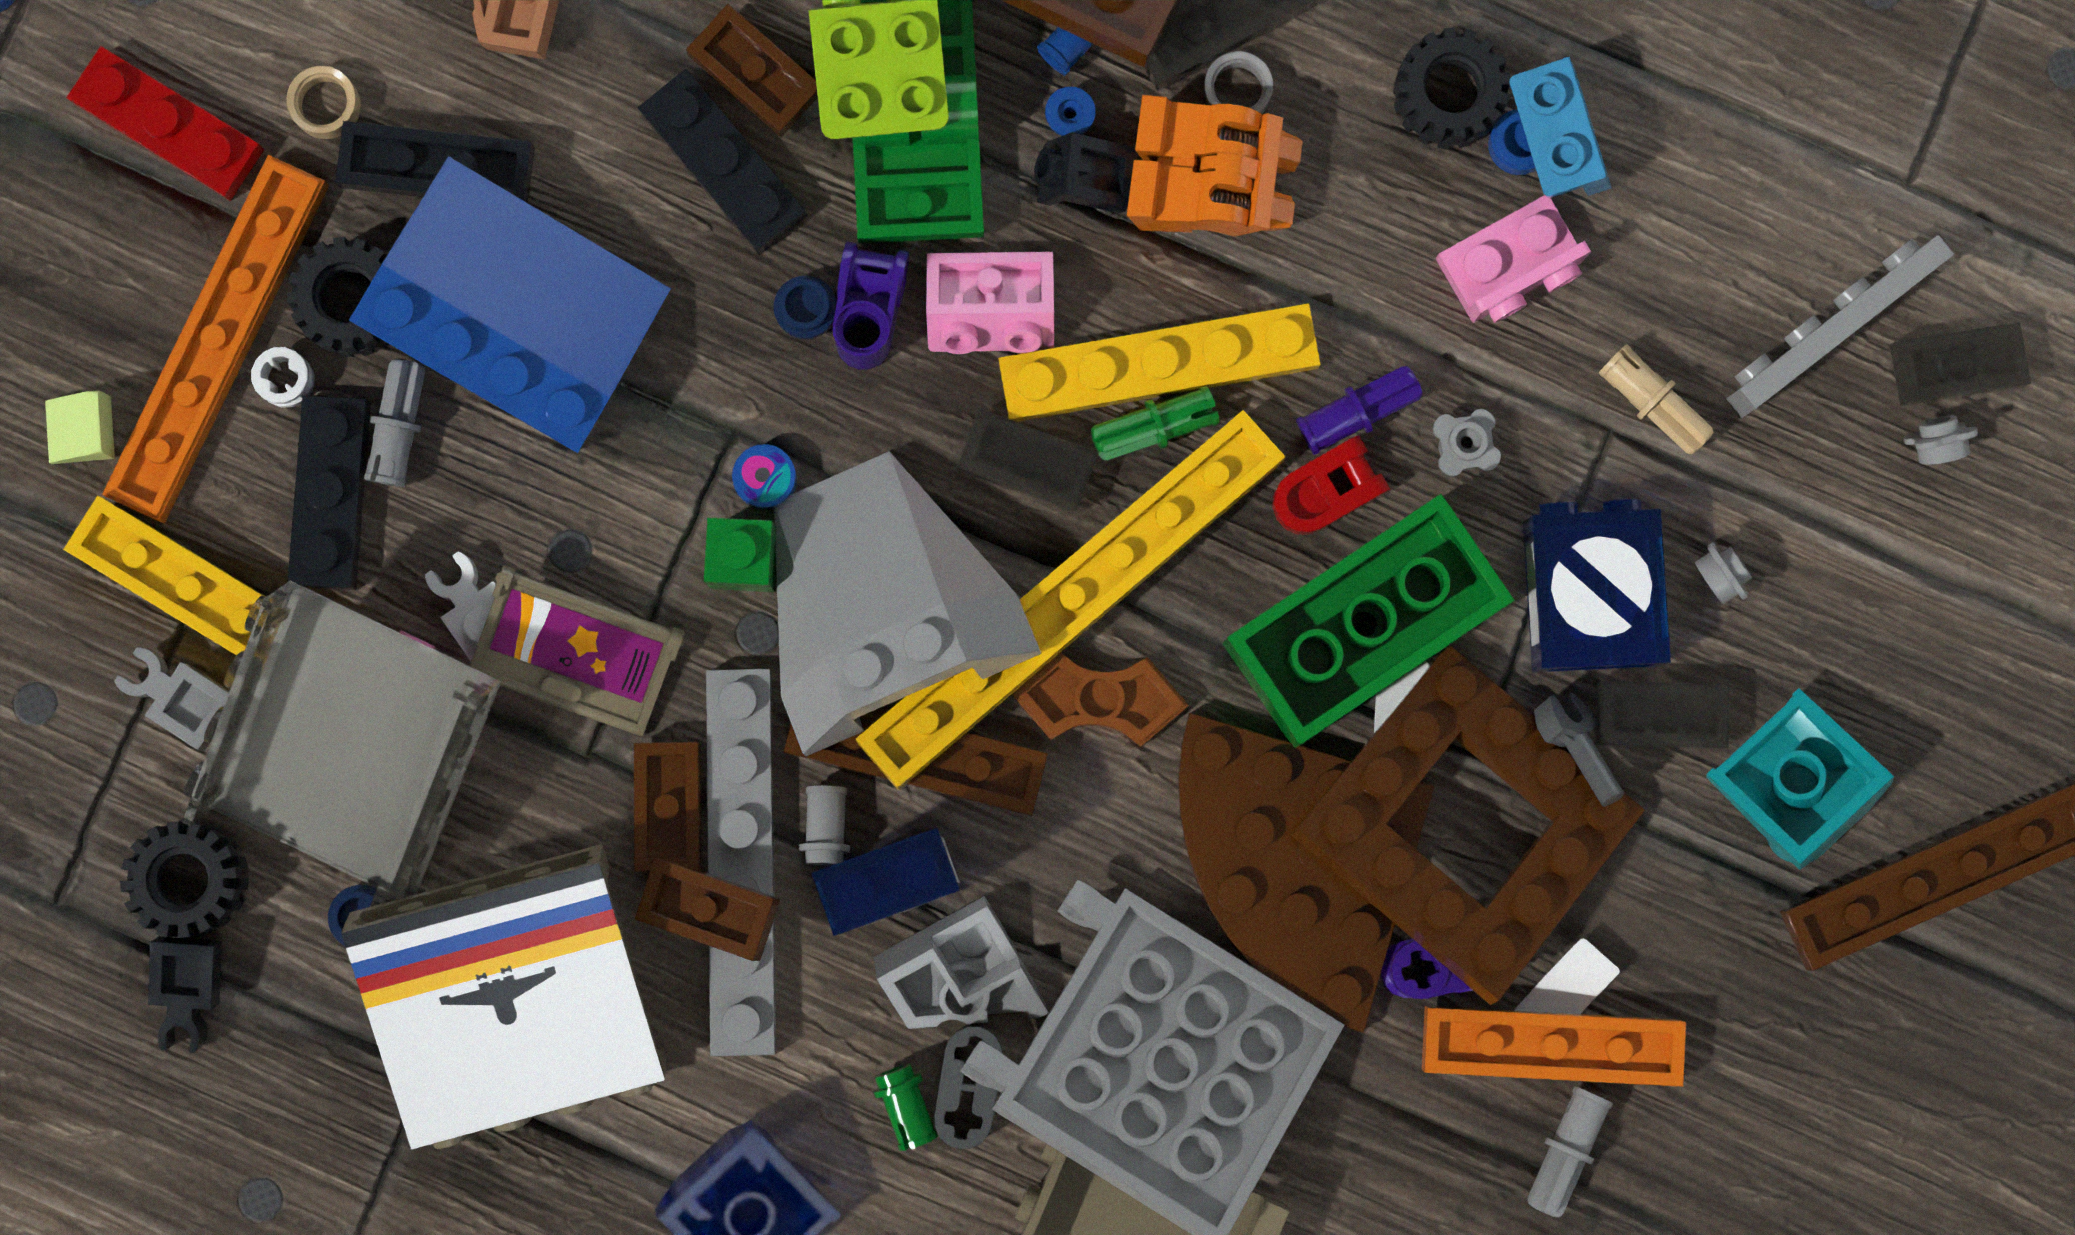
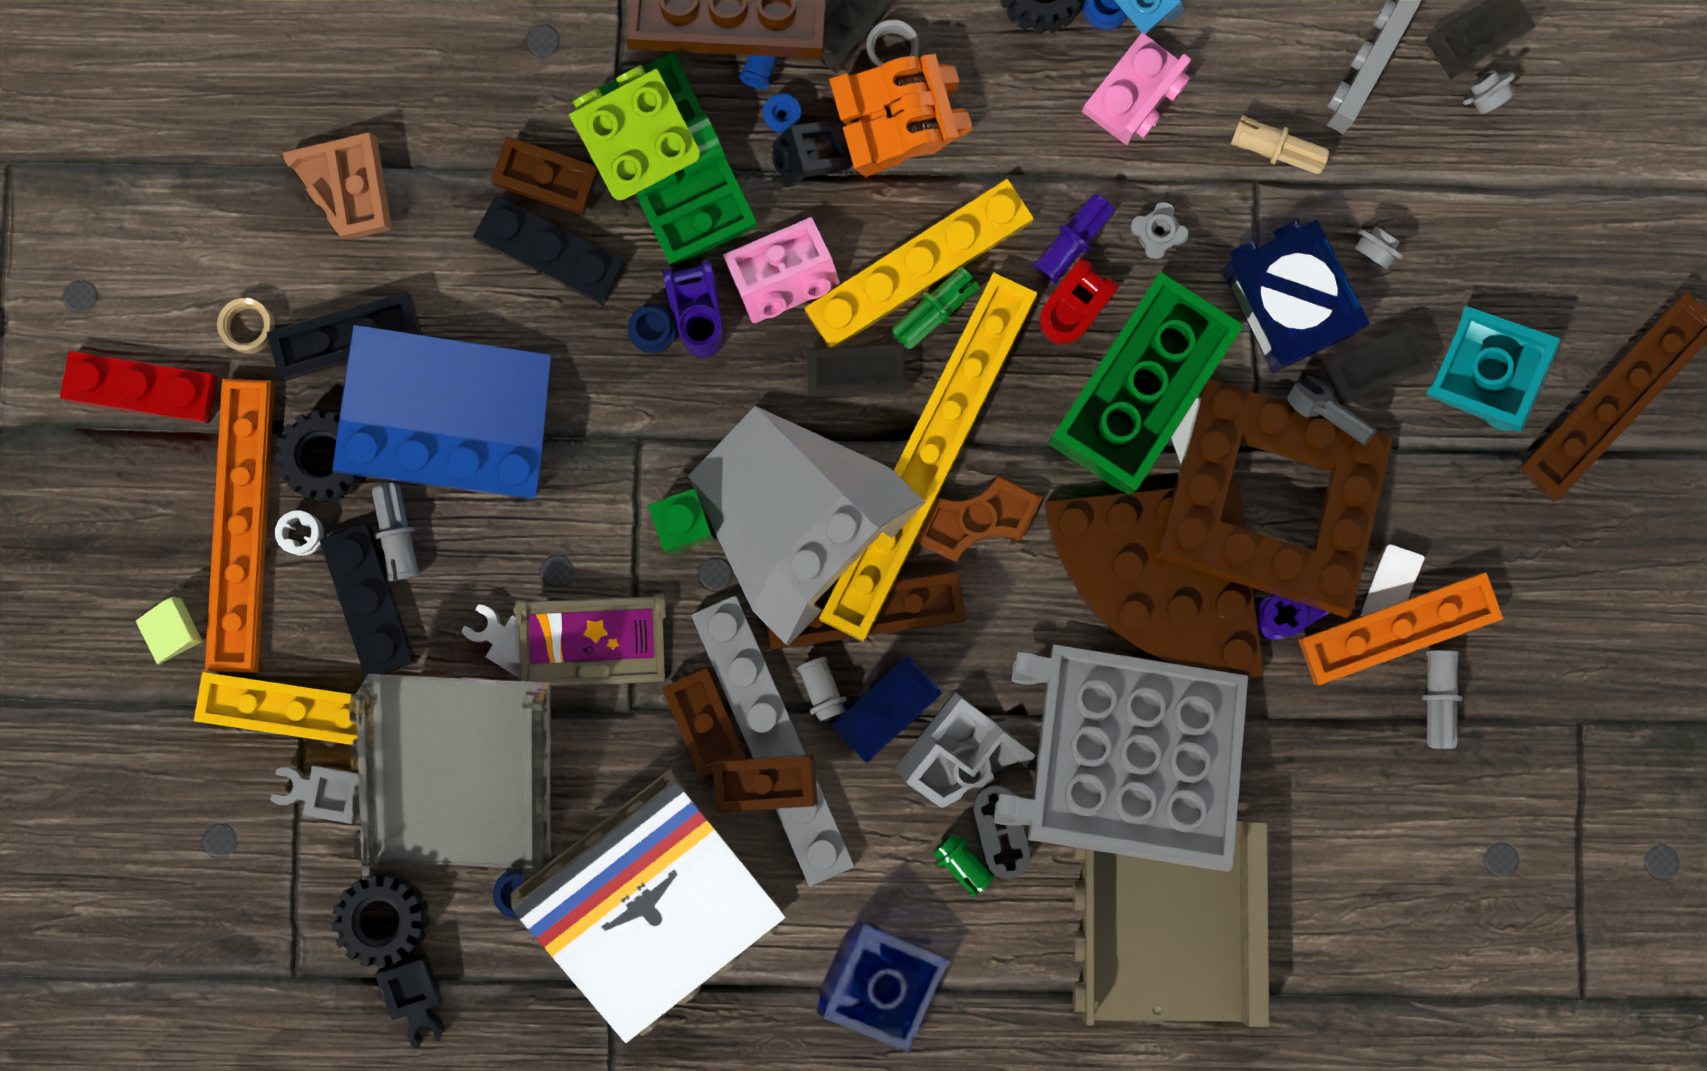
camera: 20 degrees left, 0 degrees up
(764, 476) = (673, 460): tile -> none

